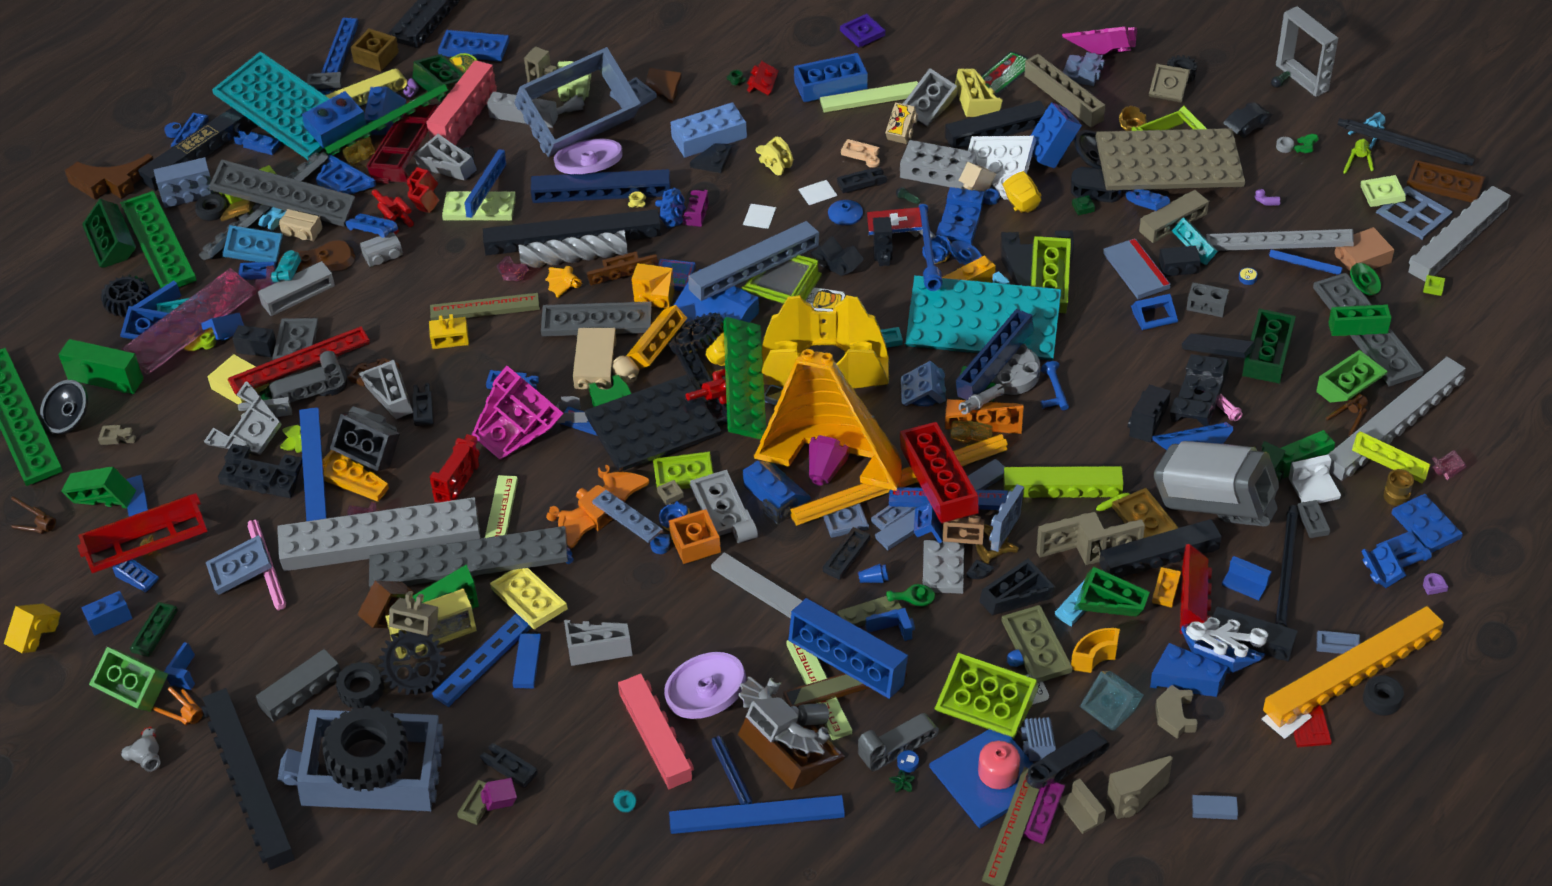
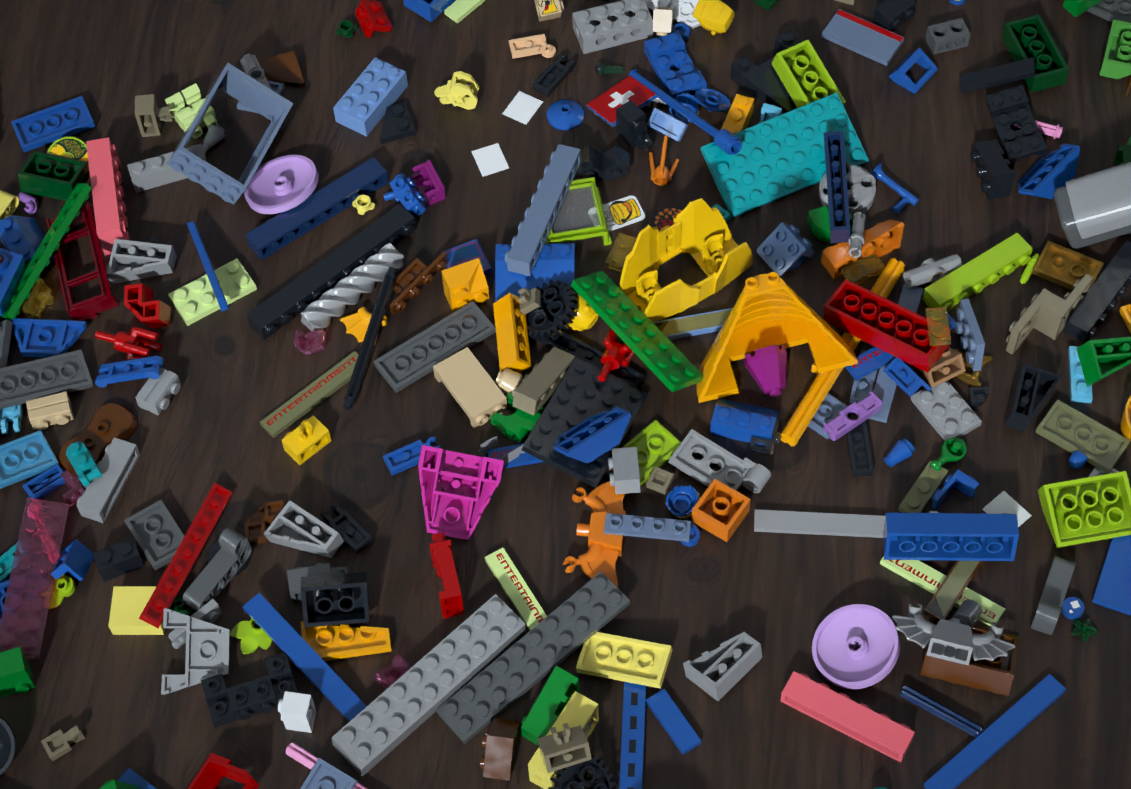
camera: 35 degrees left, 10 degrees up
(274, 499) = (297, 711): none -> white brick
(553, 287) = (369, 339): none -> black piece
(635, 378) = (542, 381): none -> dark tan brick
(638, 74) = (253, 69): none -> light grey piece
(638, 431) = (594, 435): none -> blue wedge
(648, 469) = (625, 470): none -> light grey brick
(687, 317) = (529, 299): none -> dark tan tile
(846, 528) = (842, 424): none -> medium lavender piece
(877, 286) = (661, 174): none -> orange plant
(914, 254) = (667, 124): none -> medium blue tile
(923, 665) = (1005, 504): none -> white sticker
(969, 486) = (938, 326): none -> clear yellow plate
(1023, 458) = (931, 271): none -> light grey piece

